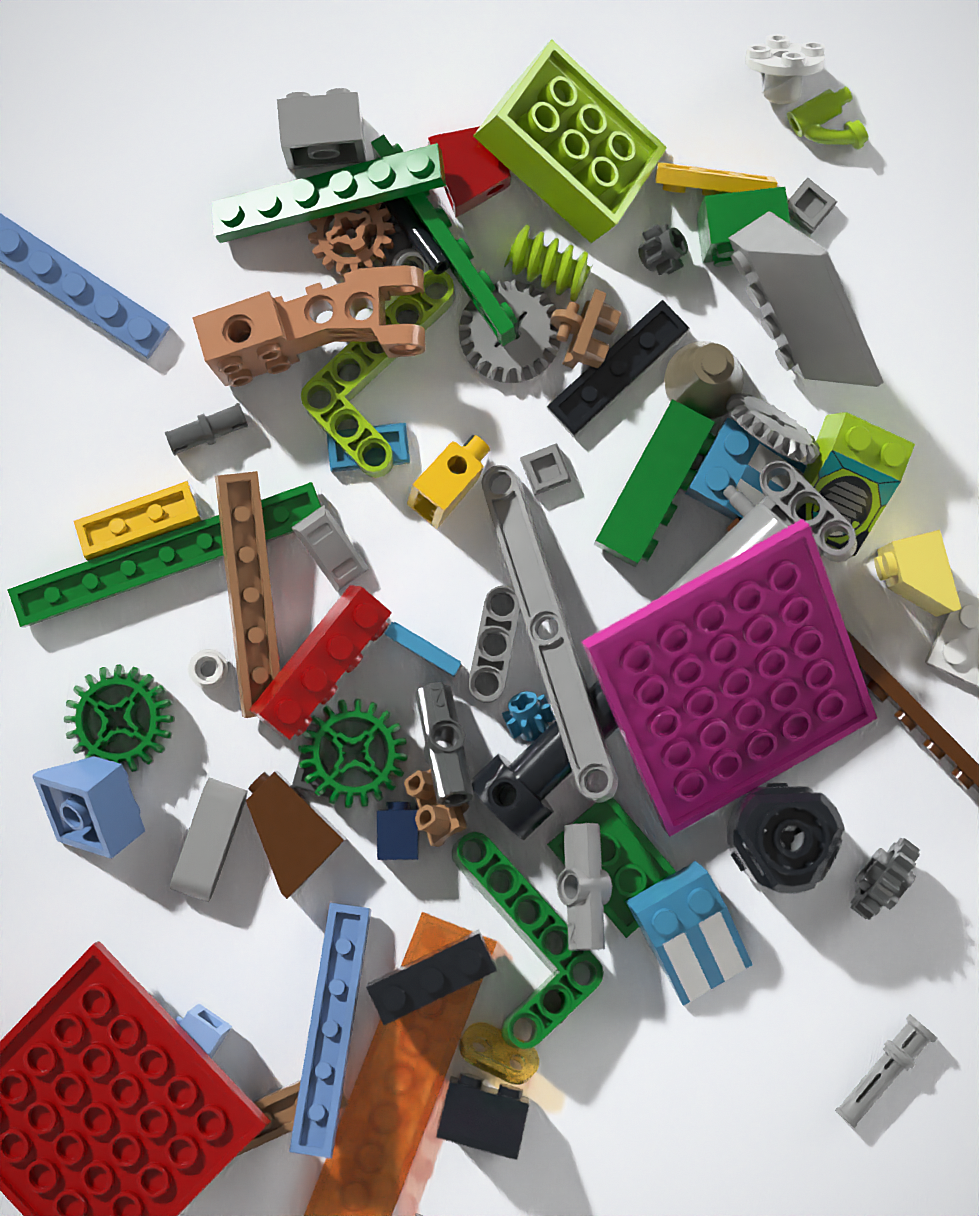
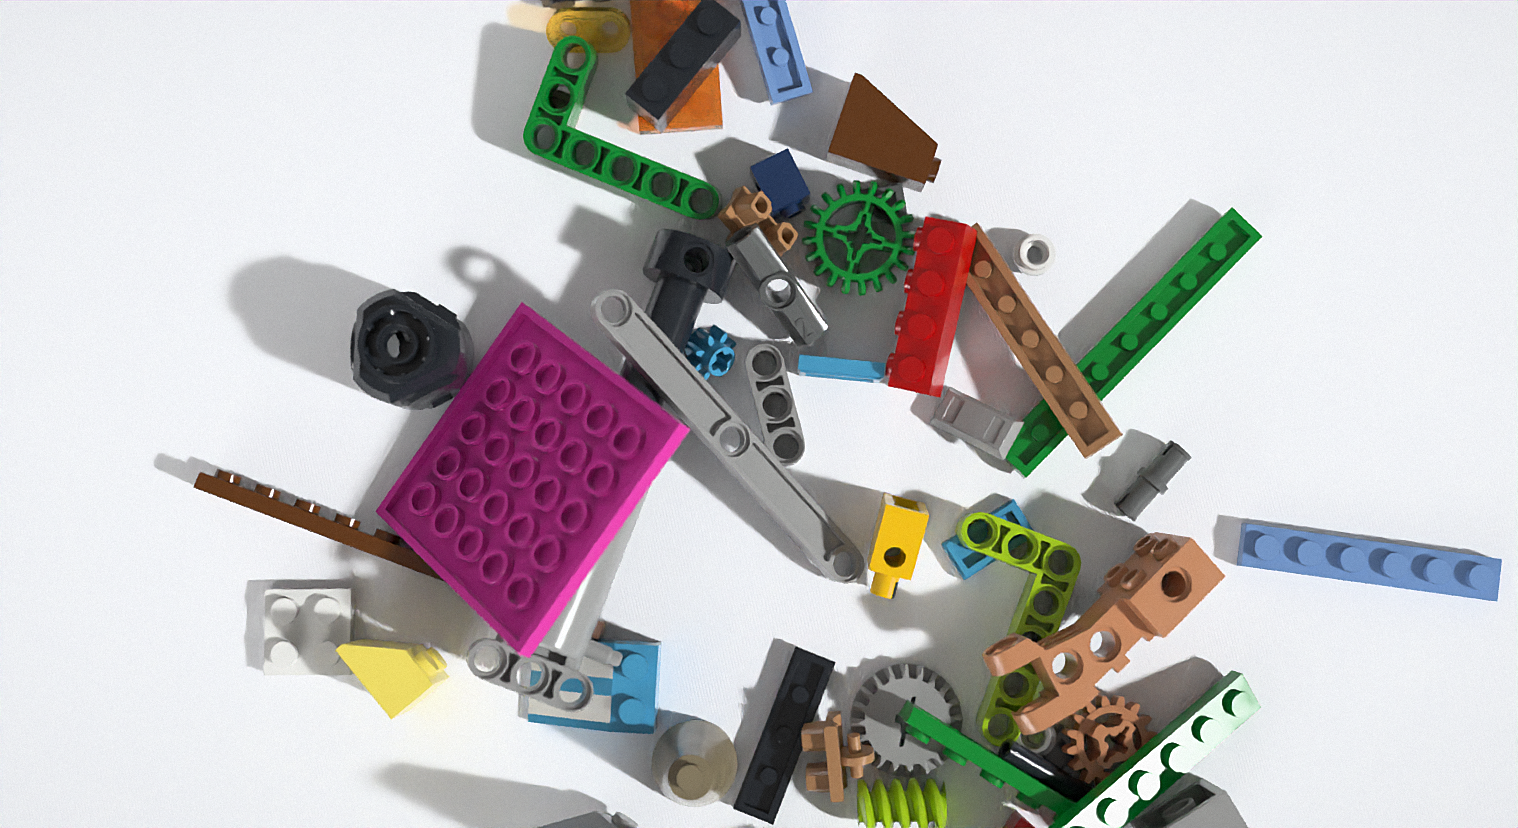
camera: 160 degrees right, 0 degrees up
(90, 805) = (1079, 72): medium blue slope -> none
(131, 704) = (1077, 165): green gear -> none
(137, 520) = (1173, 360): yellow plate -> none
(208, 839) = (954, 96): light grey beam -> none
(545, 469) = (807, 600): light grey tile -> none
(584, 887) = (579, 212): light grey piece -> none
(625, 855) = (559, 253): green plate -> none
(654, 483) = (693, 636): green brick -> none
(690, 932) = (462, 223): dark azure slope -> none
(773, 427) = (603, 744): light grey gear -> none
(855, 473) = (504, 738): slope -> none
(885, 878) = (297, 358): dark grey gear -> none
(903, 1050) = (235, 135): light grey pin -> none

